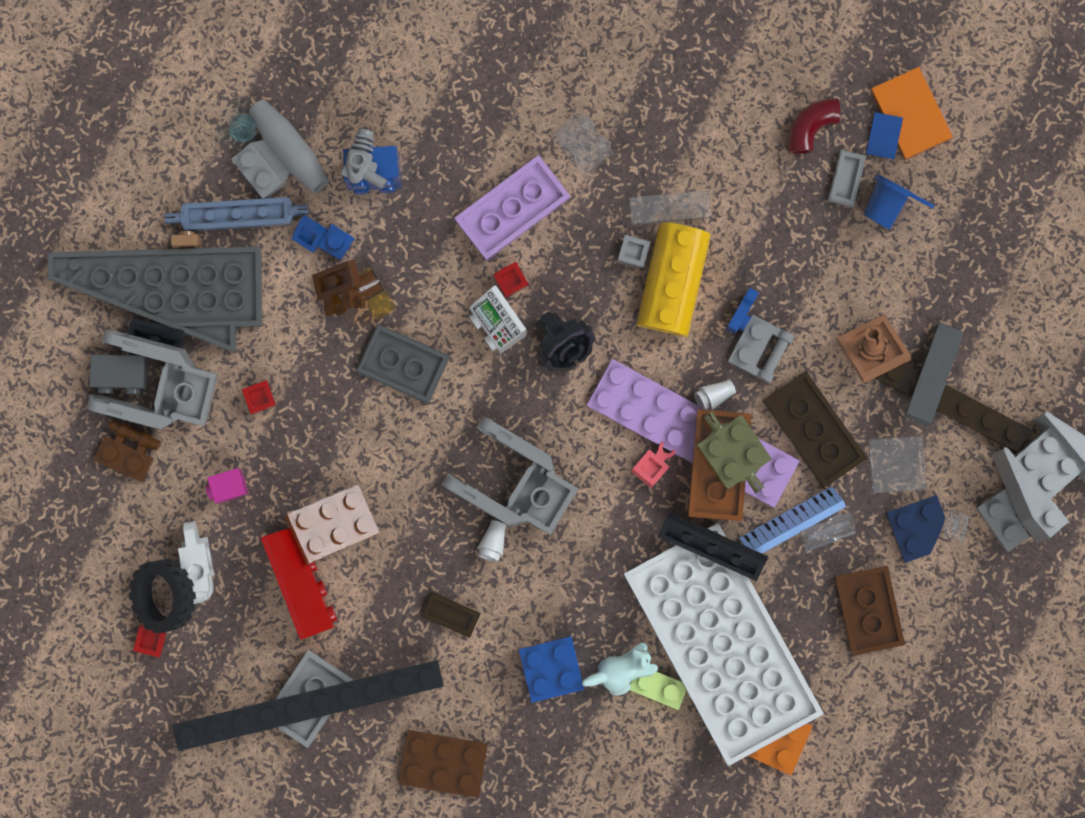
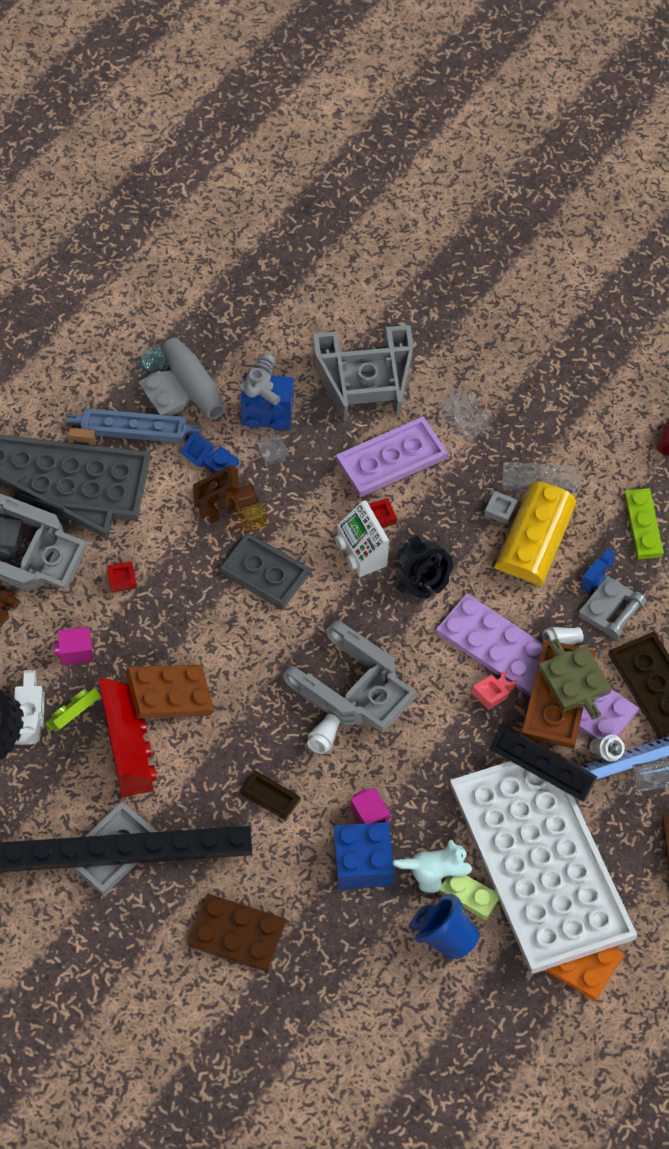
camera: 10 degrees right, 25 degrees down
(240, 562) = (75, 707): none -> lime plate
(387, 220) = (272, 450): none -> clear plate
(470, 115) = (364, 374): none -> light grey wedge
(549, 618) = (369, 807): none -> dark pink brick
(640, 732) = (446, 927): none -> blue container
(774, 516) = (608, 747): none -> white cone
(782, 244) = (643, 524): none -> lime plate

